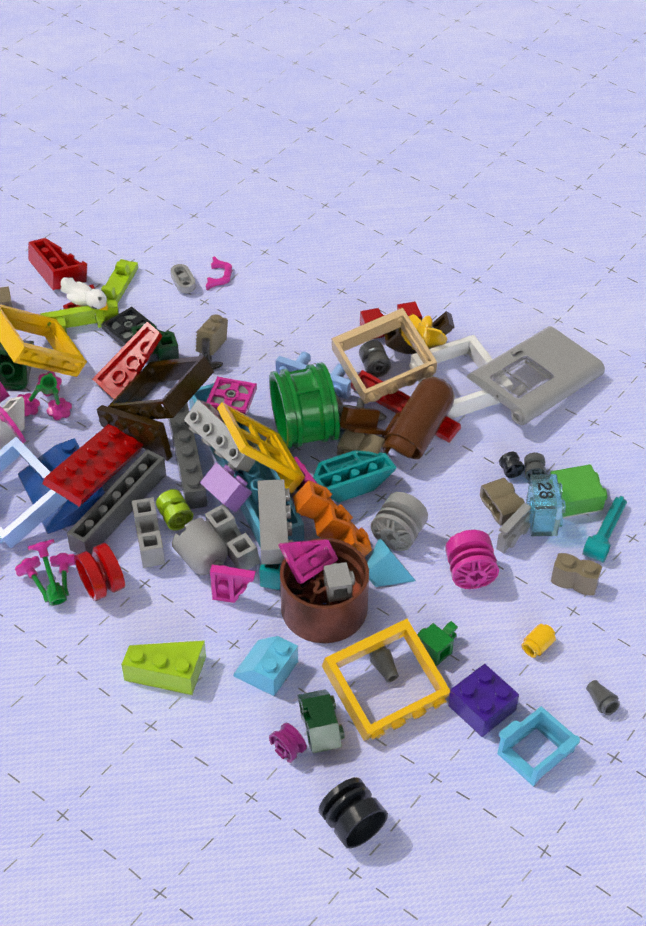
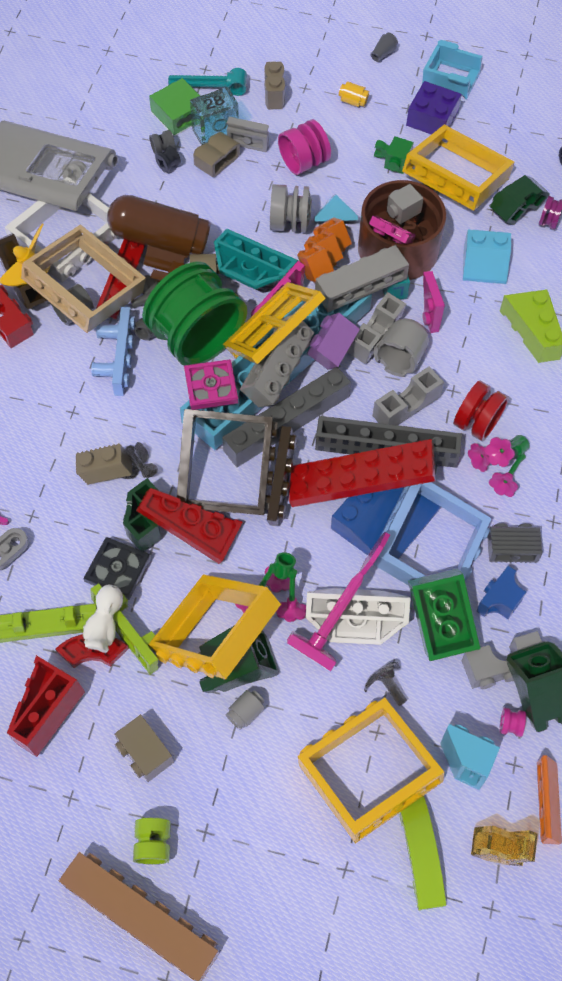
camera: 115 degrees left, 15 degrees up
(174, 509) = (365, 392): lime wheel -> none

